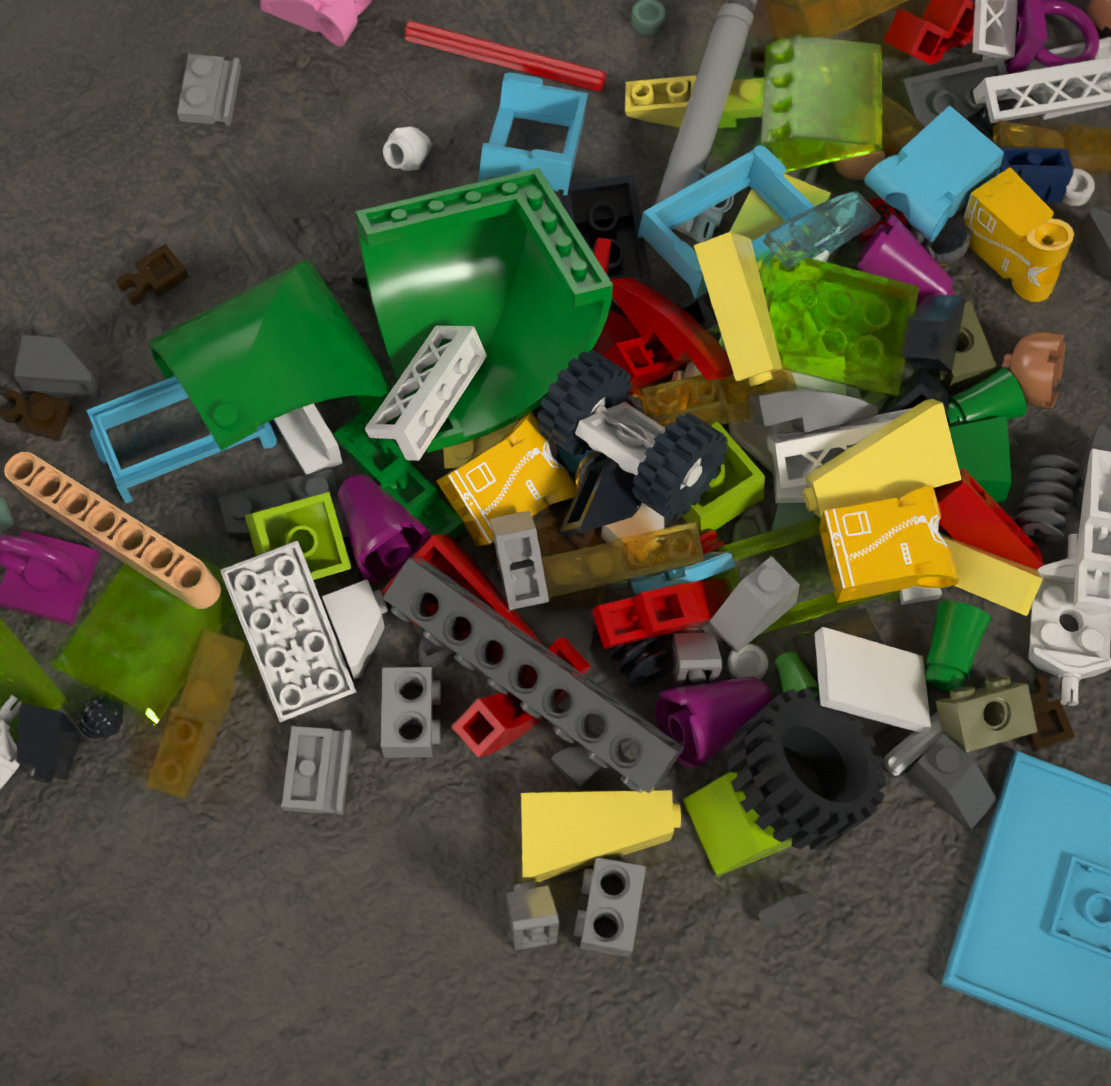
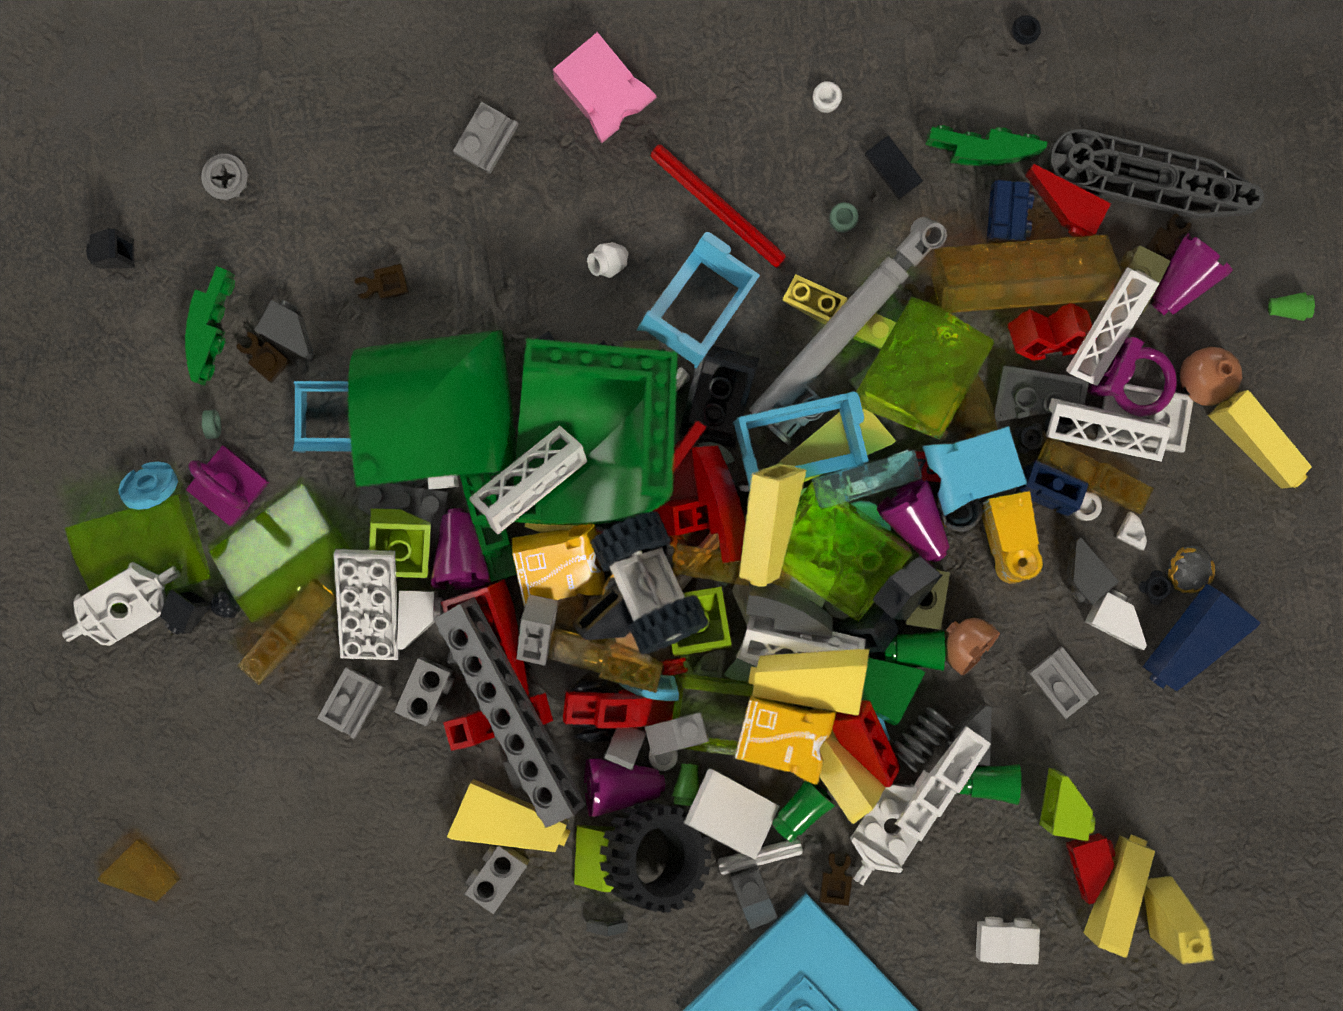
camera: 25 degrees right, 20 degrees up
(113, 530) = (287, 488): light nougat beam -> none
(532, 916) = (439, 866): light grey slope -> none
(1008, 714) = (796, 868): olive brick -> none

